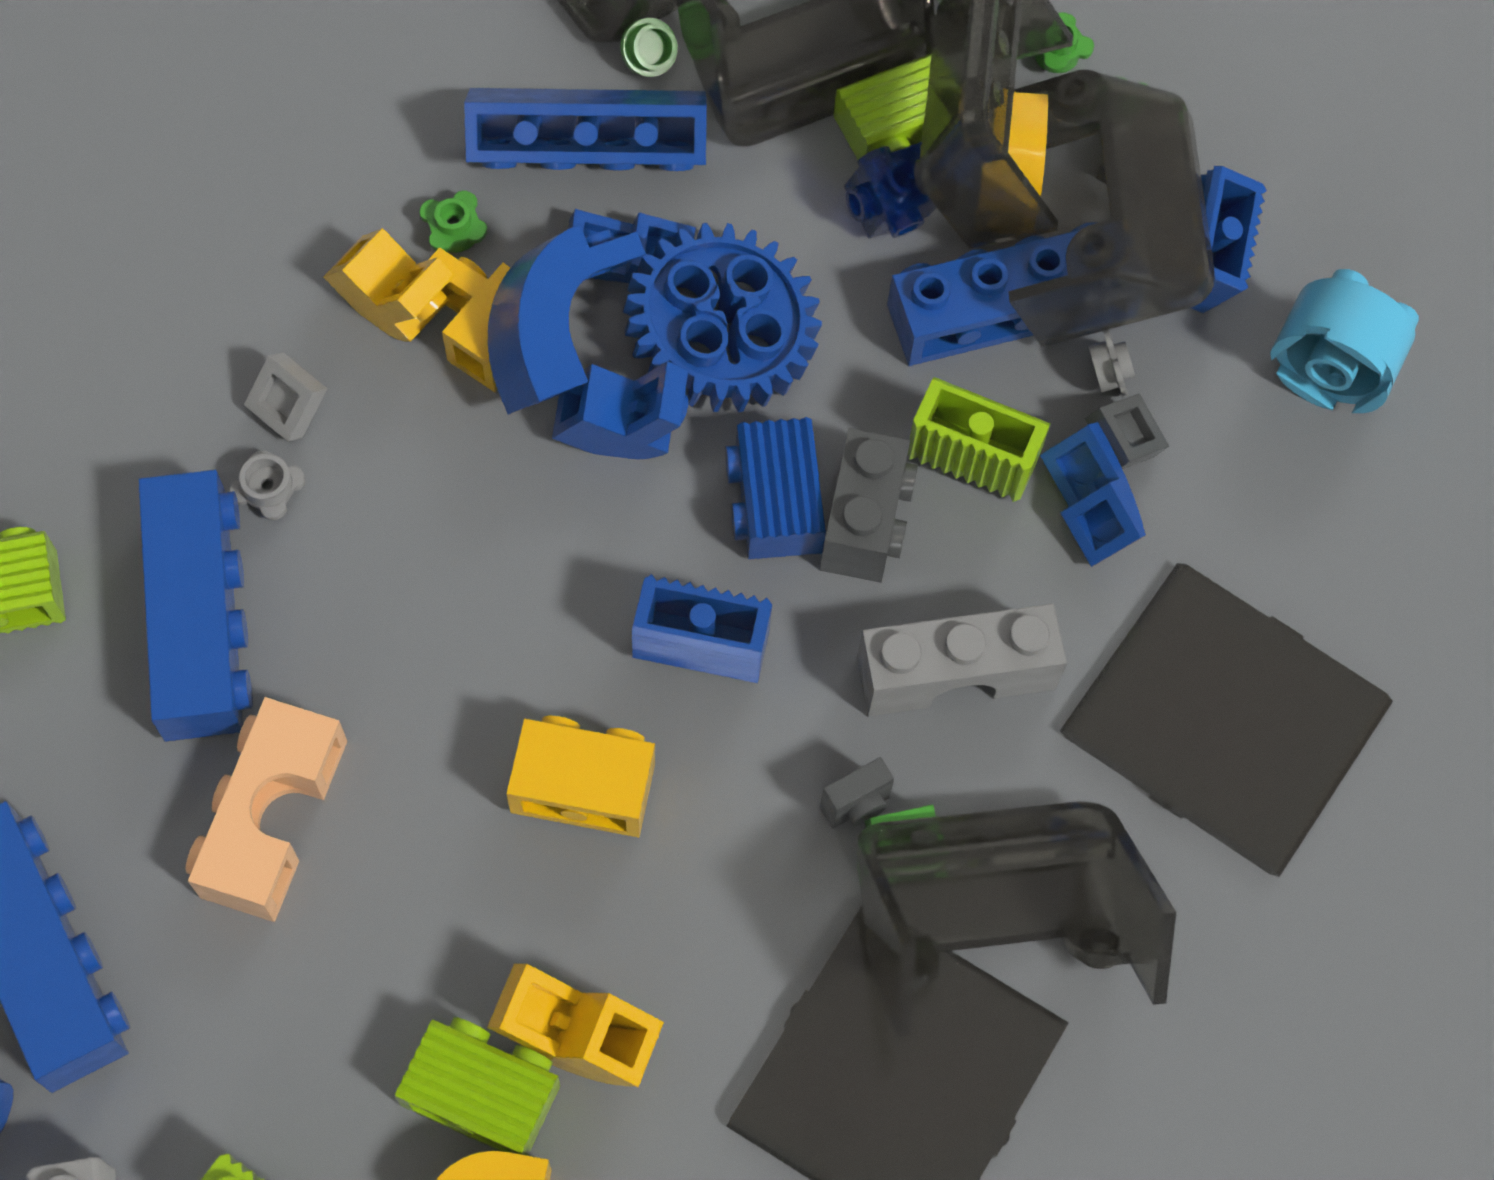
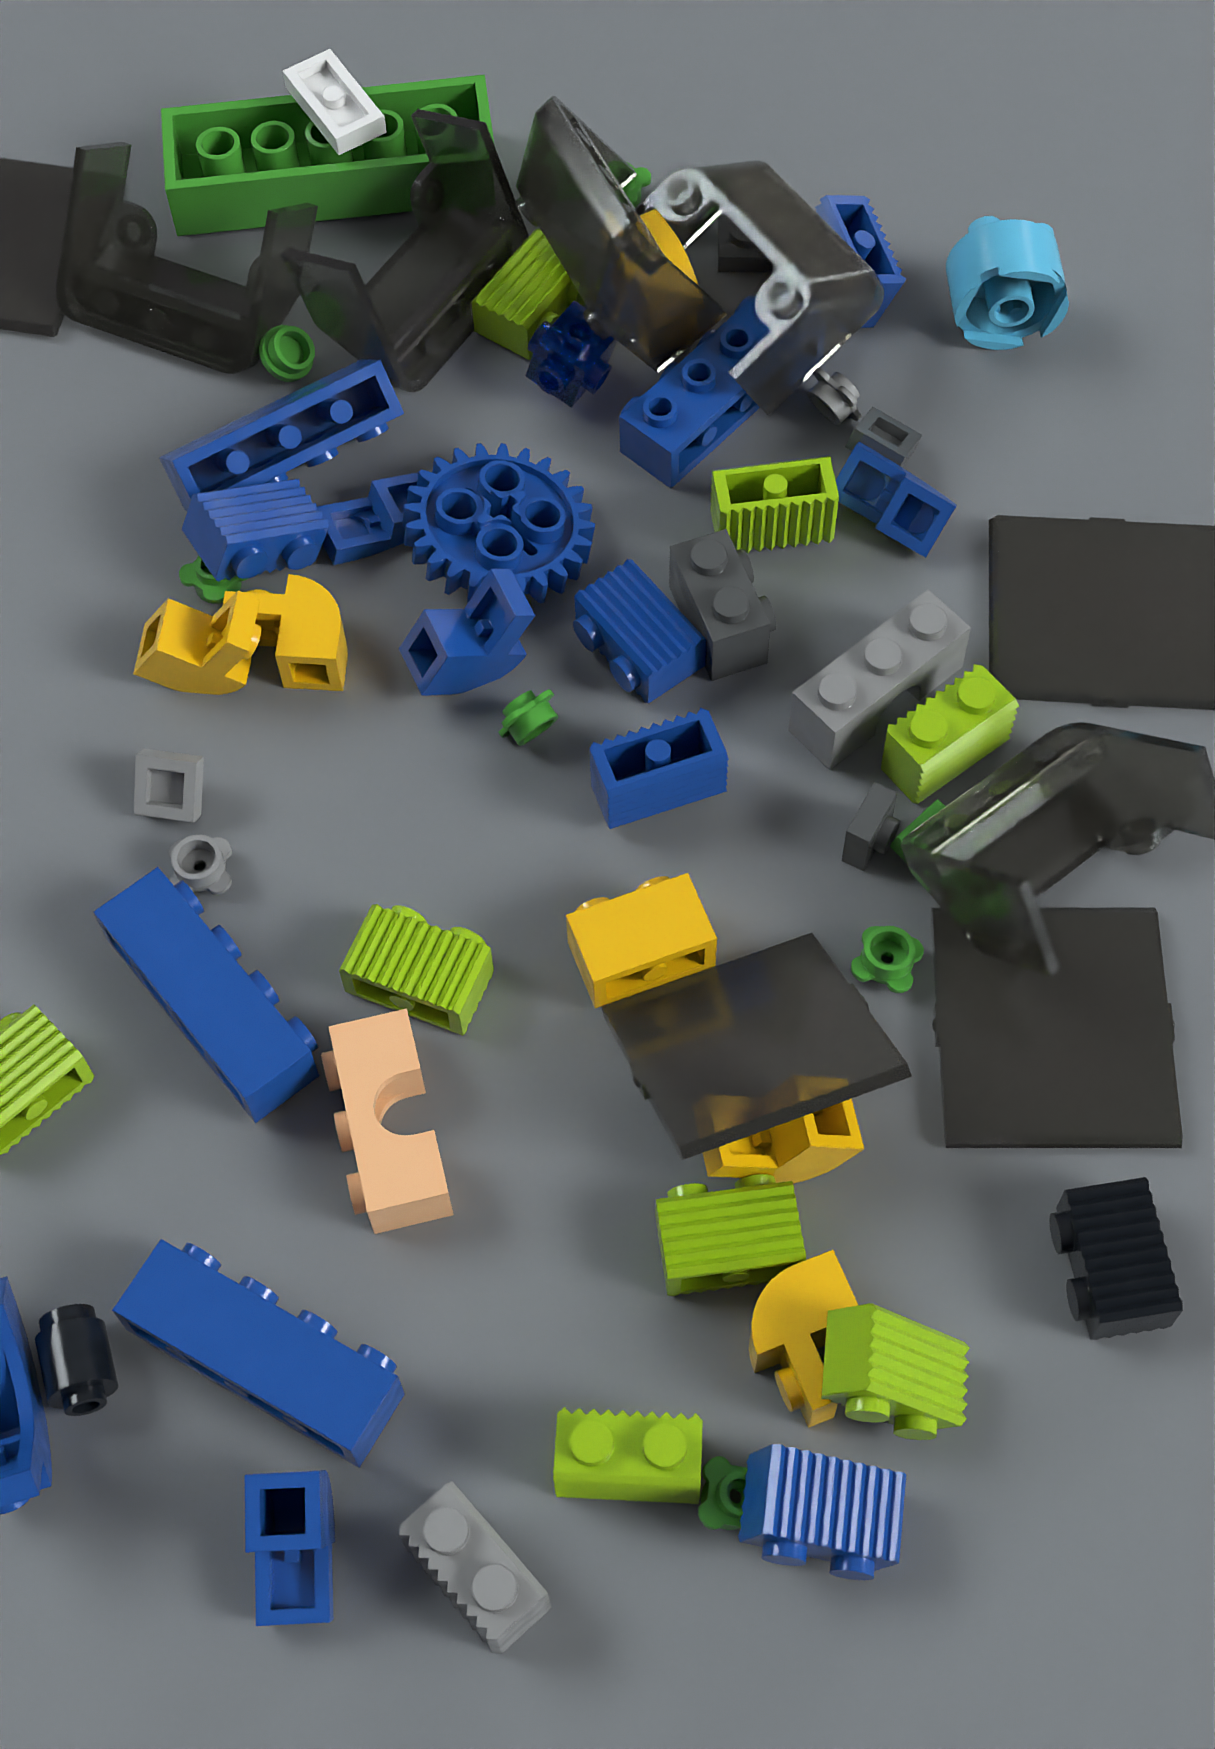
camera: 25 degrees left, 5 degrees down
(382, 686) = (418, 967): none -> lime brick
(503, 200) = (255, 529): none -> blue brick
(530, 314) = (350, 599): blue arch -> none
(603, 934) = (752, 1045): none -> clear smoke piece
(629, 512) = (528, 716): none -> bright green plate
(794, 904) = (889, 942): none -> bright green plate
(987, 748) = (948, 733): none -> lime brick

